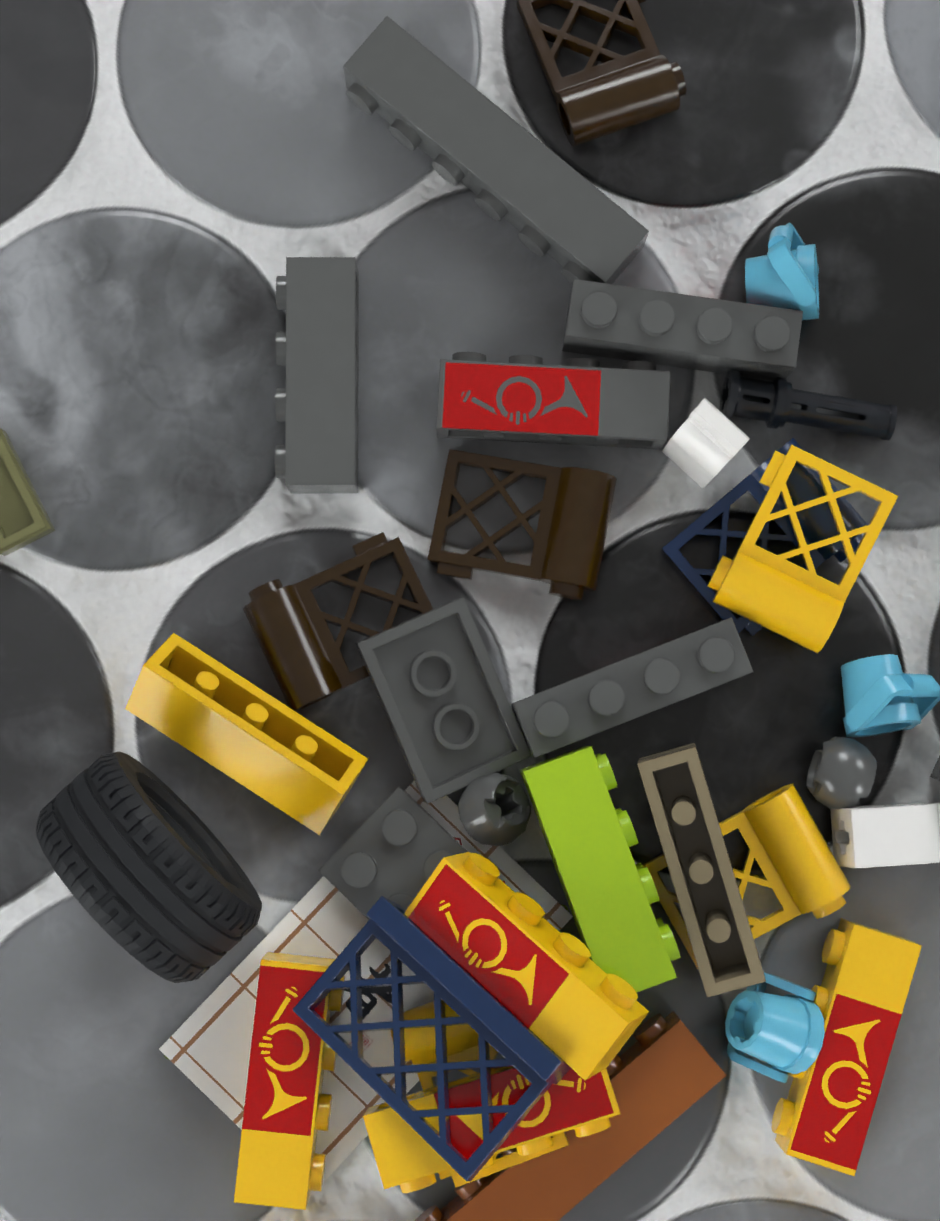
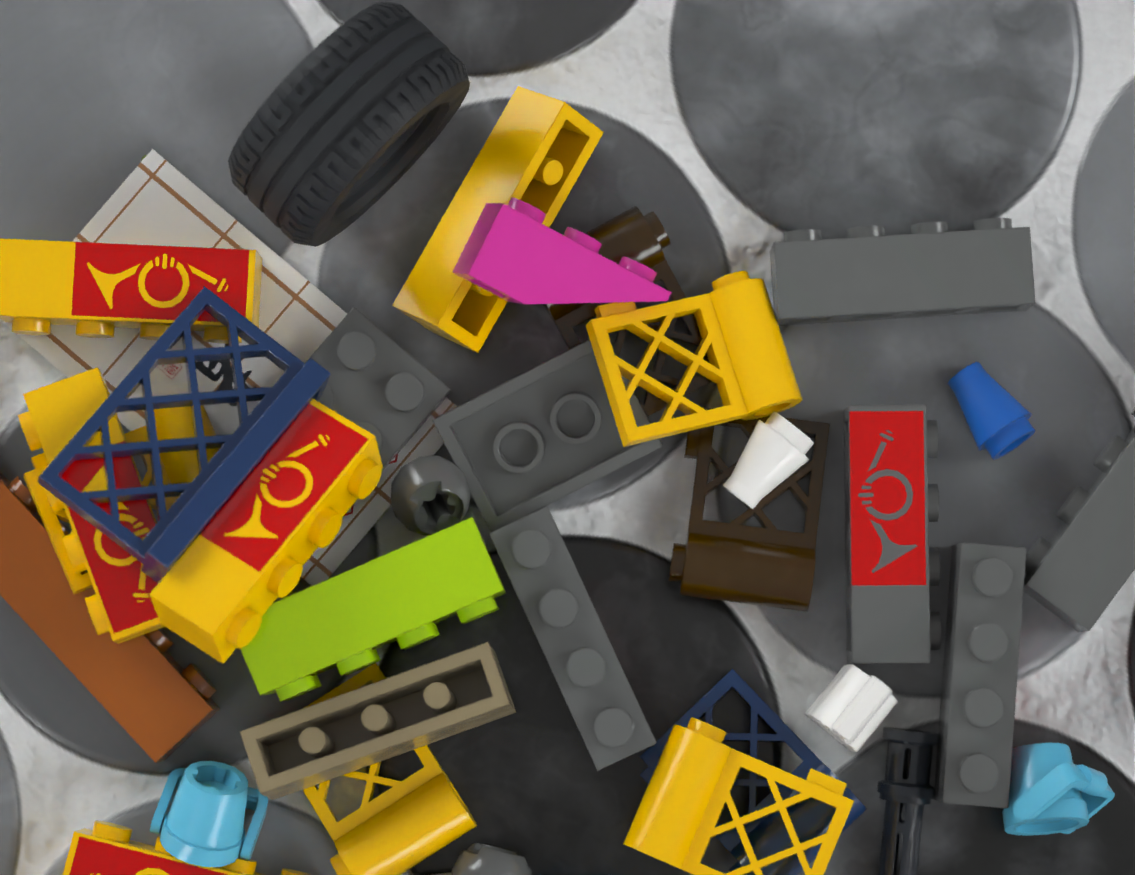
camera: 90 degrees right, 0 degrees up
(295, 697) = (535, 265): none -> dark pink slope
(380, 520) = (742, 349): none -> yellow piece
(447, 306) = (990, 411): none -> blue cone
(480, 503) = (768, 459): none -> white cone

